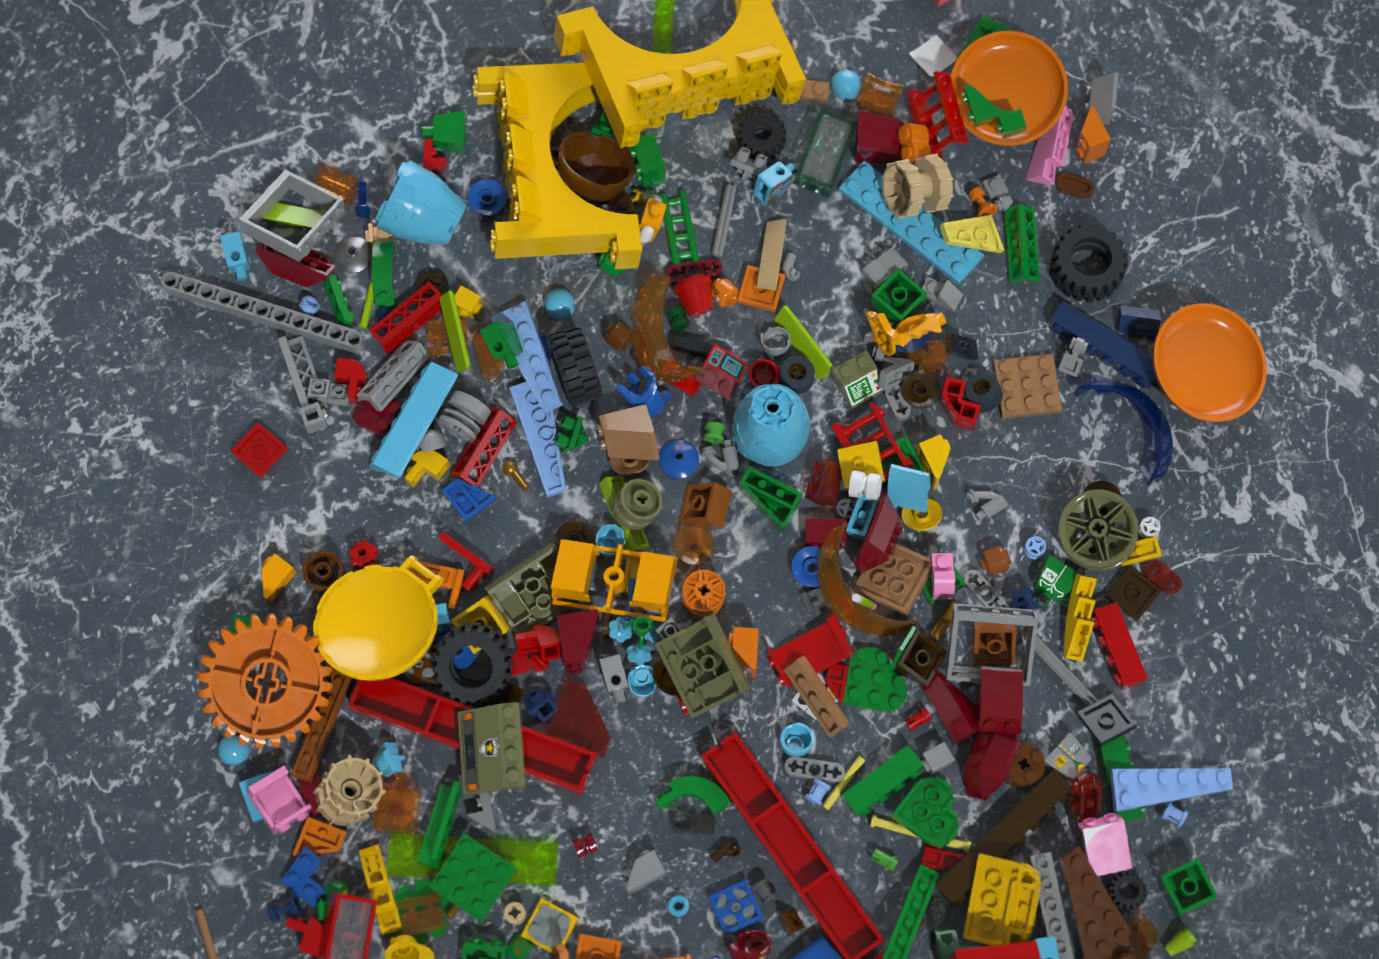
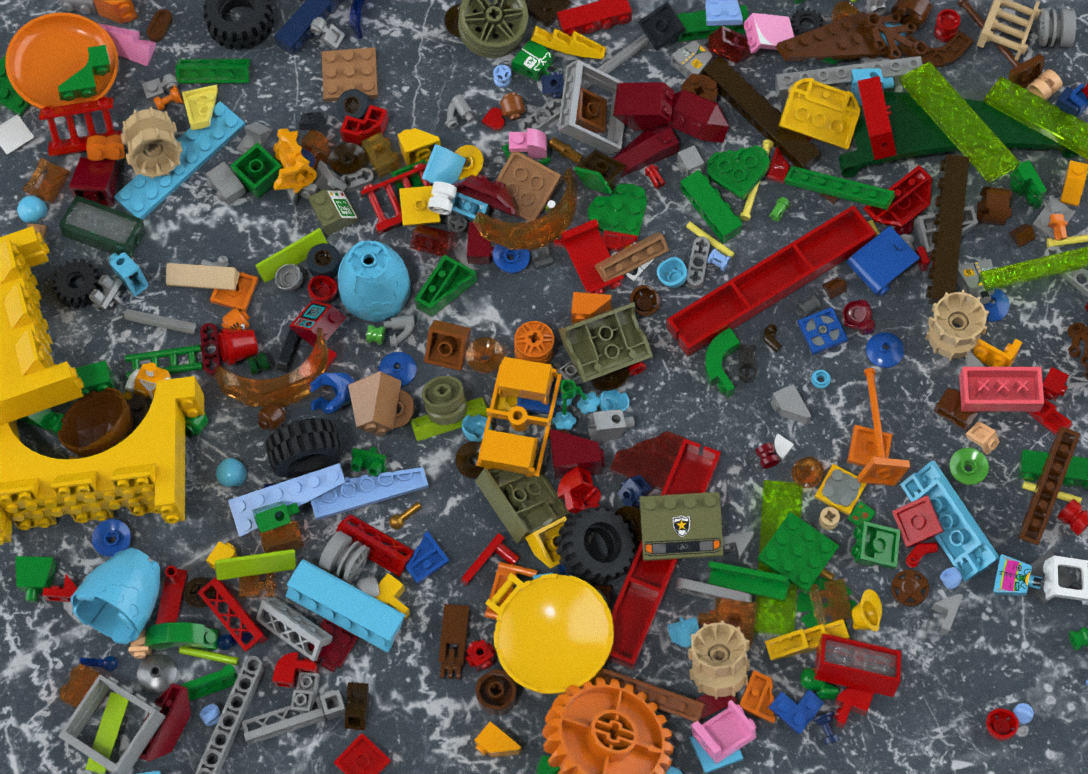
camera: 85 degrees left, 5 degrees down
(312, 441) = (357, 706): none -> dark brown brick
(389, 530) = (453, 632): none -> reddish brown hinge
(426, 260) = (171, 595): none -> red piece
(431, 790) = (710, 591): none -> light grey beam
(564, 888) = (806, 476): none -> clear orange helmet
(598, 863) = (782, 446): none -> white tile
(761, 711) = (643, 303): none -> reddish brown helmet
(931, 415) = (384, 163): none -> clear yellow brick
(980, 542) = (494, 119): none -> red tile

